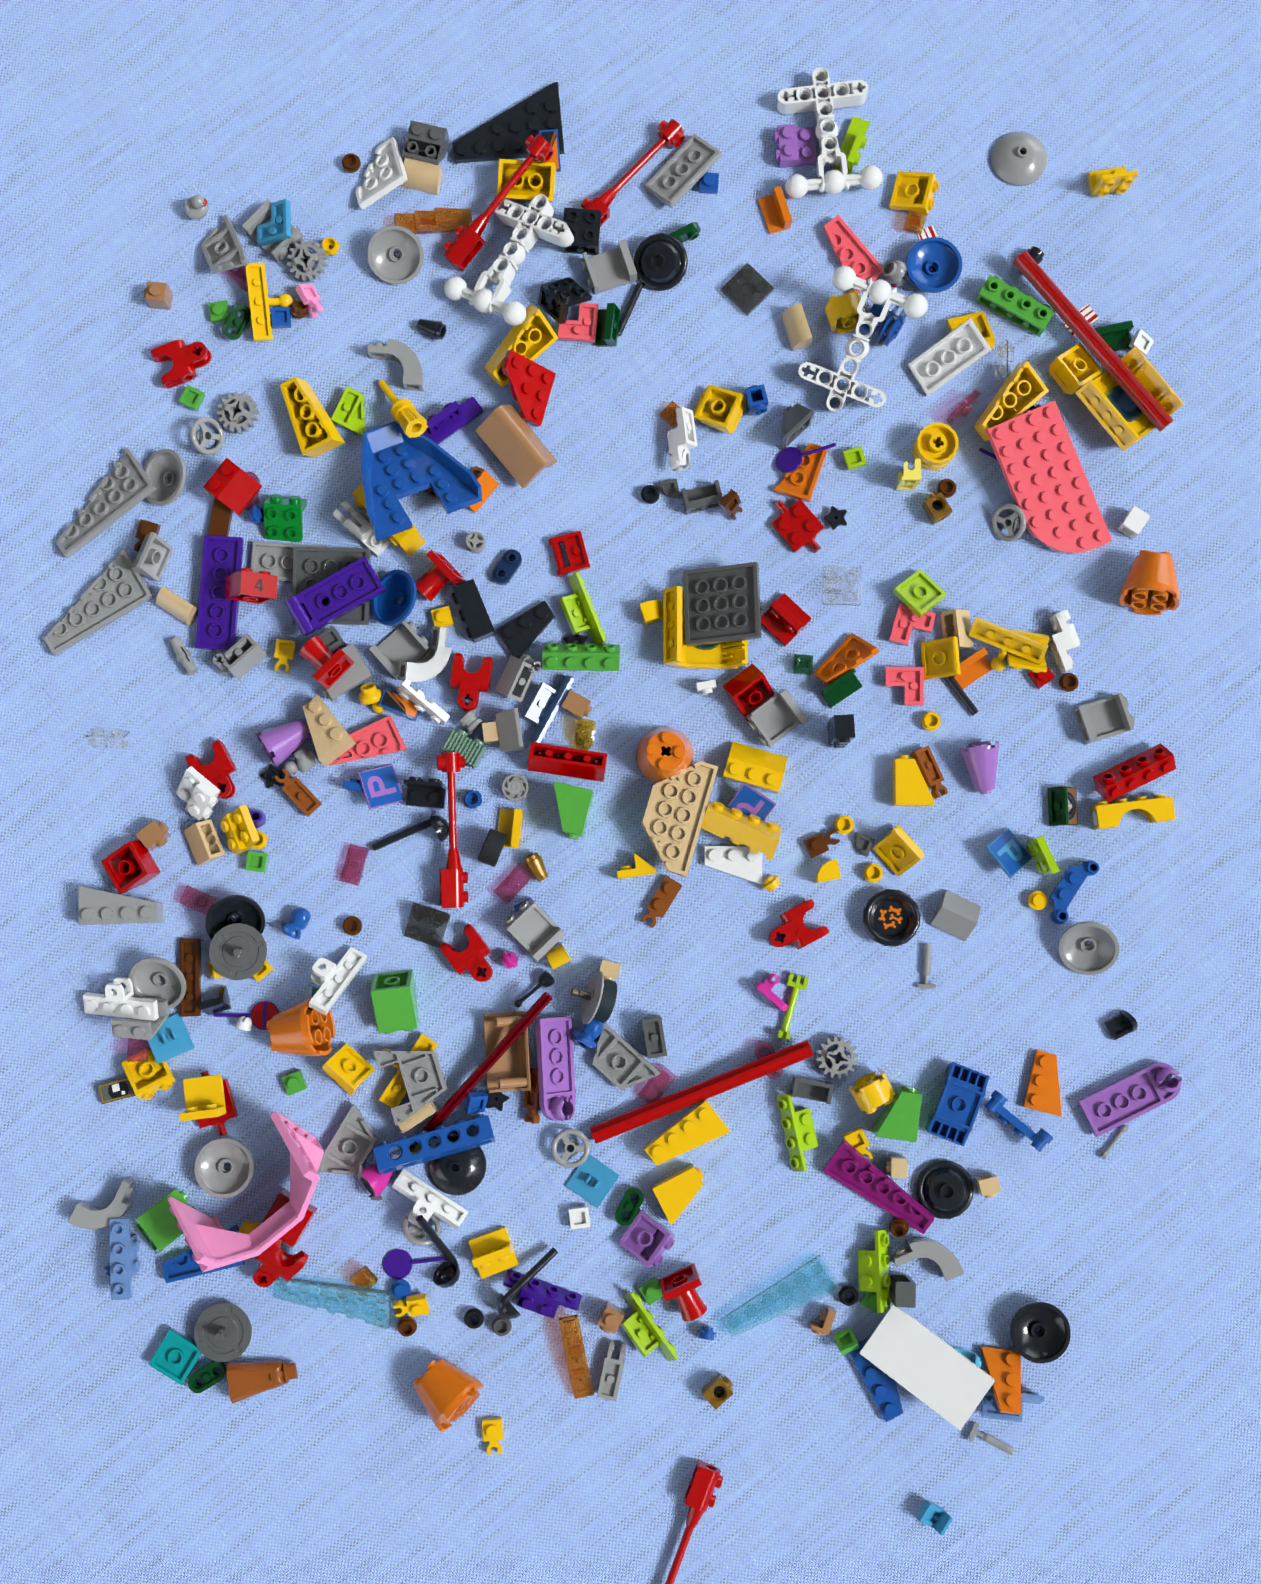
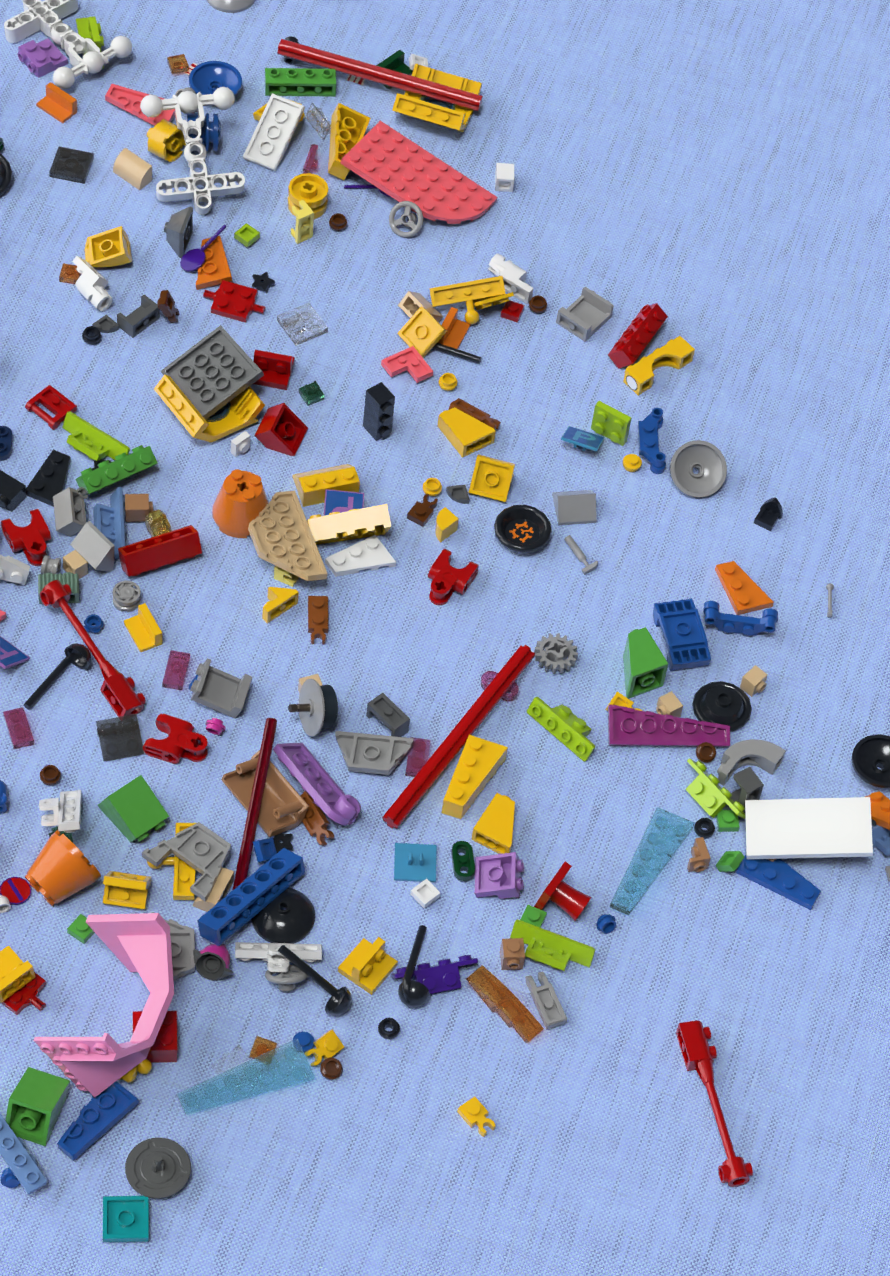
camera: 40 degrees left, 30 degrees down
(208, 1376) = (168, 1220): dark green plate -> none
(211, 1169) = (64, 1013): light grey dish -> none
(252, 1378) = (217, 1191): dark orange piece -> none
(277, 1263) = (170, 1074): red piece -> none
(399, 1263) = (286, 1024): dark purple piece -> none
(425, 793) = (45, 634): black bracket -> none
(446, 1392) = (408, 1090): orange cone -> none
(492, 847) = (138, 645): black tyre -> none
(501, 1326) = (418, 1020): dark grey plate -> none
(536, 866) = (187, 644): pearl gold cone -> none
(545, 980) = (257, 727): black hinge -> none
(557, 956) = (258, 702): yellow brick -> none
(574, 808) = (189, 579): bright green slope -> none
(577, 1148) = (375, 850): light grey piece -> none
(588, 1034) = (327, 745): blue animal -> none
(651, 611) = (153, 415): yellow brick -> none
(714, 1398) = (648, 968): pearl gold brick -> none
(756, 399) = (136, 228): blue brick -> none
(765, 989) = (464, 637): dark pink piece -> none
(771, 882) = (402, 556): yellow plate -> none
(776, 717) = (318, 436): light grey panel -> none
(796, 985) = (498, 660): lime hinge -> none
(811, 1089) = (554, 686): dark grey panel -> none
(841, 688) = (354, 393): dark green panel -> none
(846, 657) = (343, 369): orange wing -> none
(872, 1092) = (605, 658): yellow brick -> none
(873, 873) = (483, 509): yellow plate -> none
(905, 621) = (376, 321): coral plate -> none
(914, 191) = (162, 44): yellow plate -> none
(919, 593) = (370, 297): lime plate -> none
(936, 516) = (340, 237): pearl gold brick -> none
(982, 762) = (512, 386): medium lavender cone -> none
(1062, 806) = (598, 387): dark green panel -> none
(1074, 369) = (377, 101): yellow slope -> none
(1130, 1097) = (816, 559): medium lavender plate -> none
(1151, 584) = (551, 206): orange cone -> none

